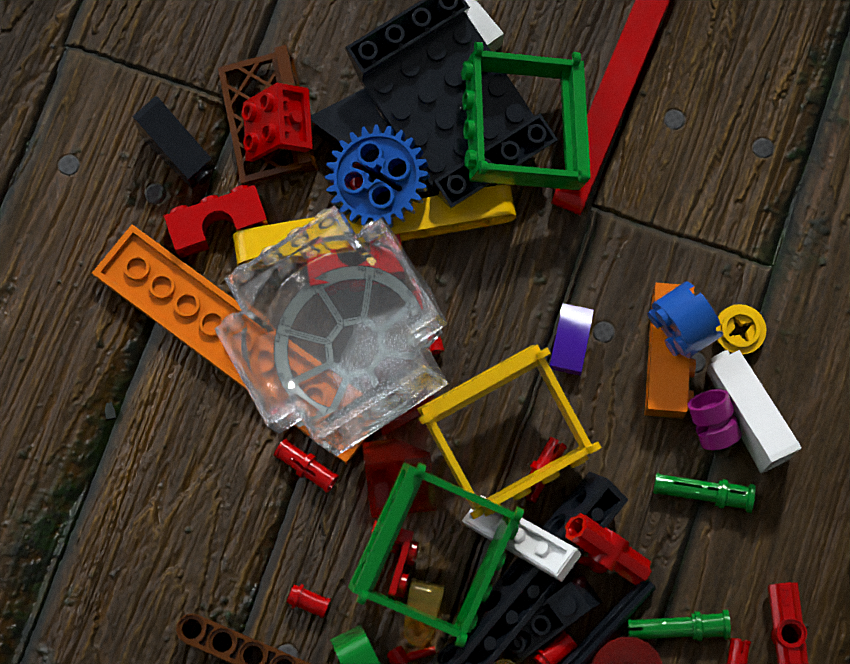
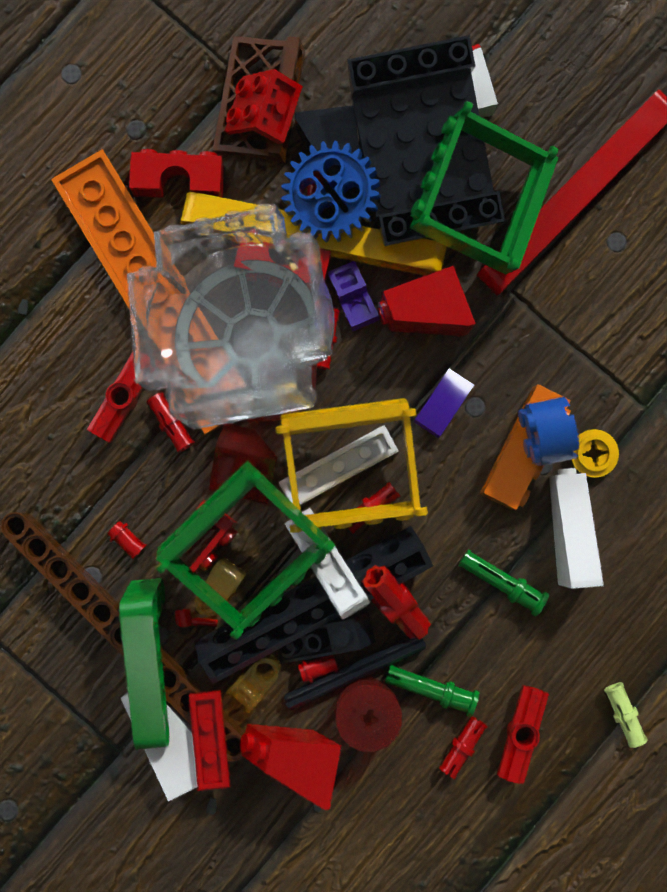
camera: 15 degrees right, 10 degrees up
(173, 143) = (165, 88): black slope -> none
(245, 479) = (110, 414): none -> red piece
(439, 271) = (353, 296): none -> dark purple slope
(497, 438) = (341, 465): none -> white tile
(517, 250) = (428, 306): none -> red slope
(714, 419) = (538, 525): magenta wheel -> none

